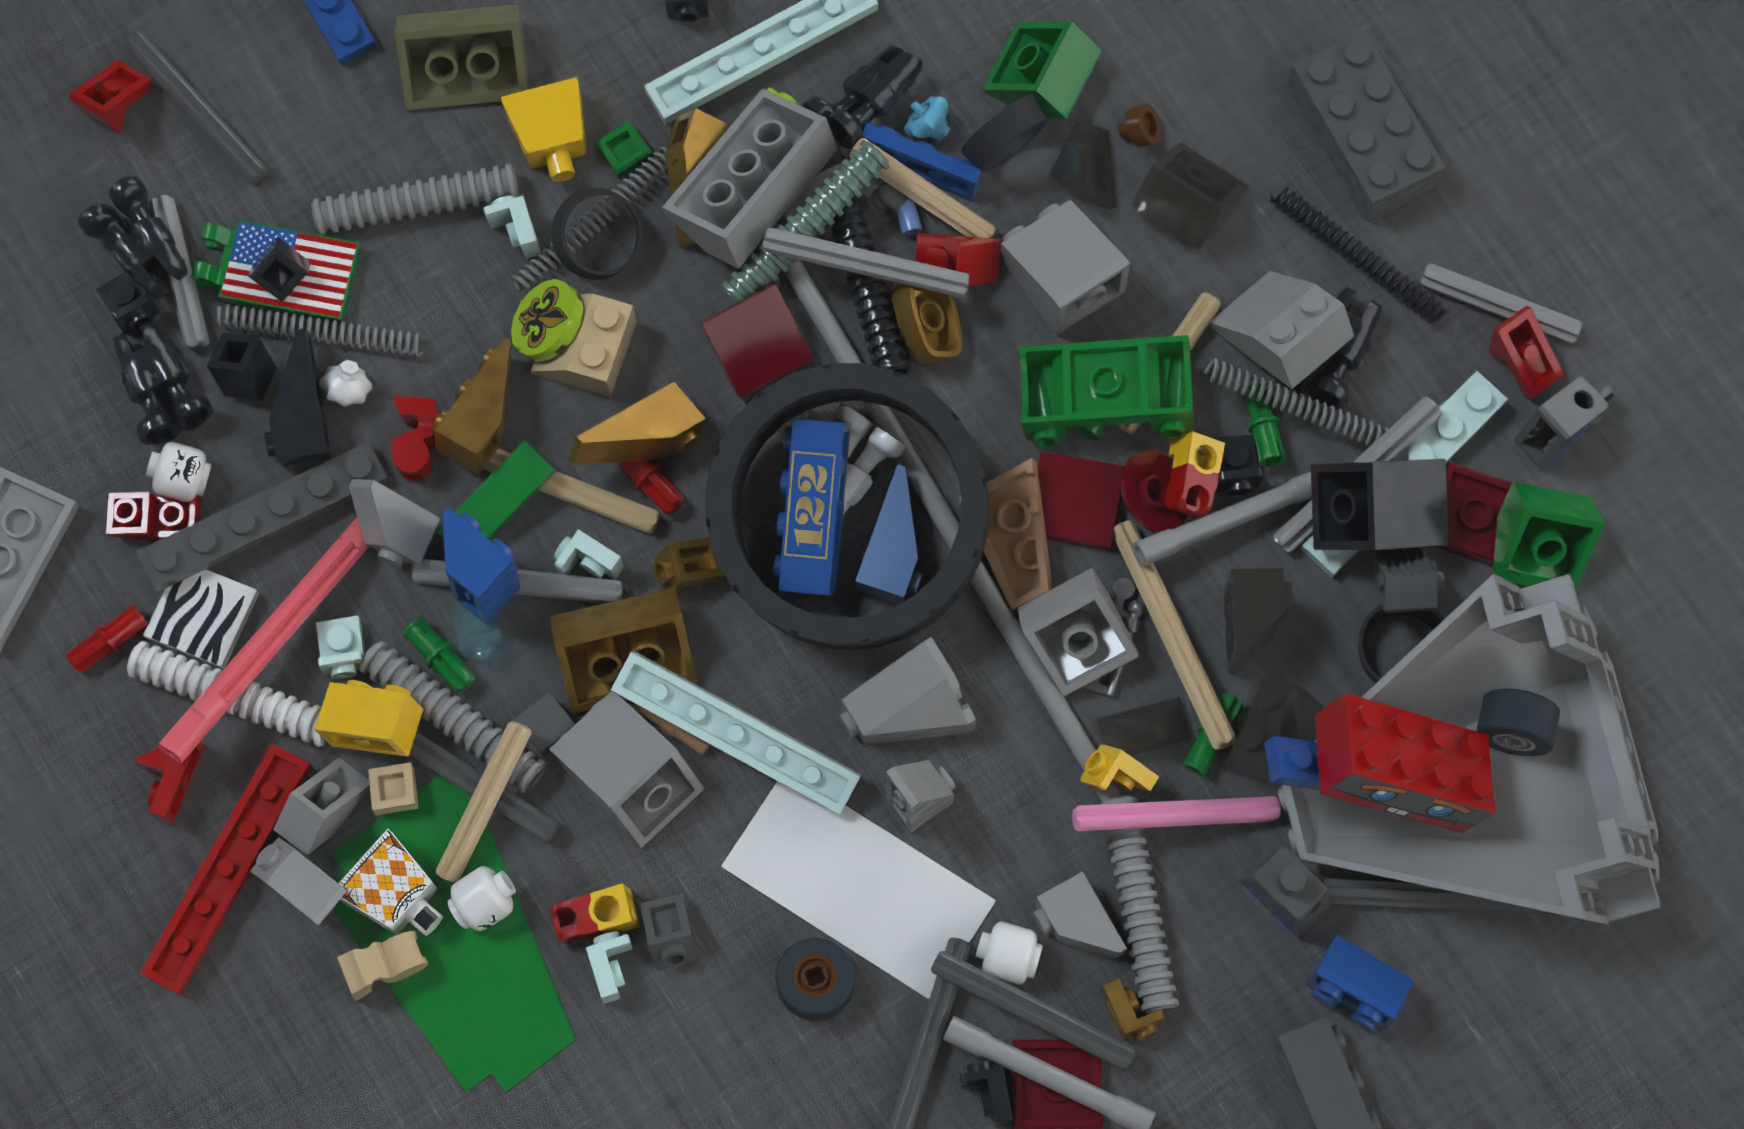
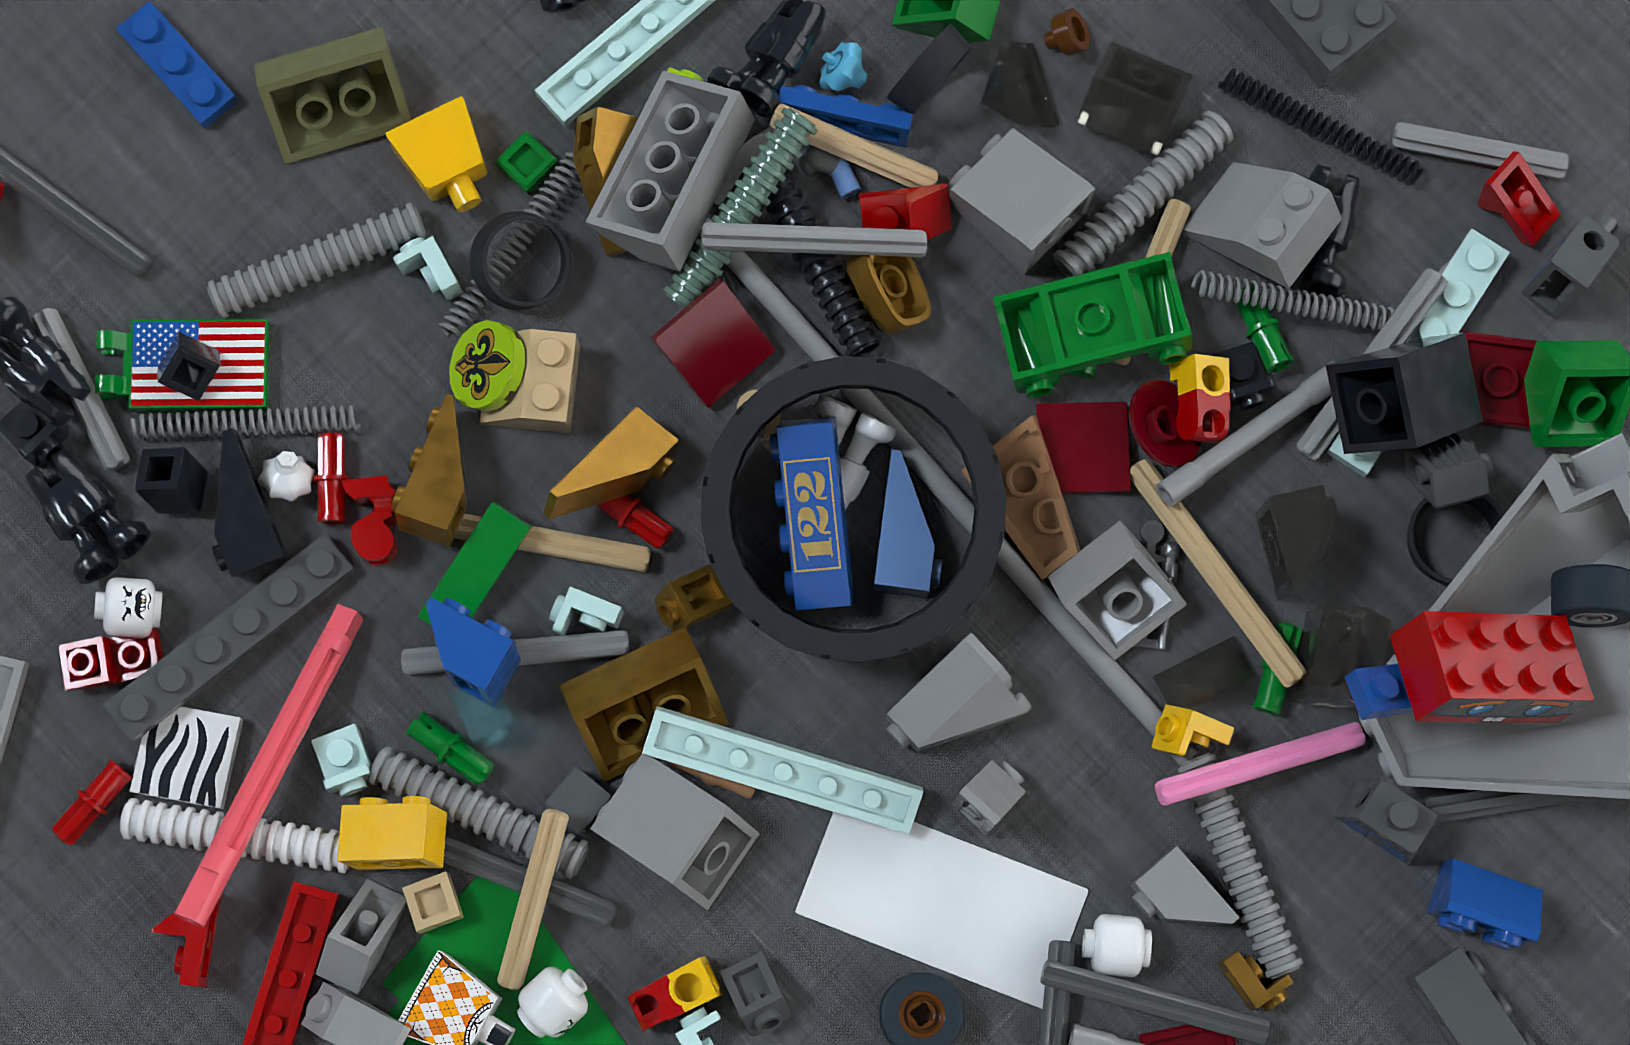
camera: 15 degrees left, 5 degrees up
(382, 403) = (330, 473): none -> red axle
(392, 523) = (370, 619): light grey slope -> none
(1181, 283) = (1144, 195): none -> light grey piece

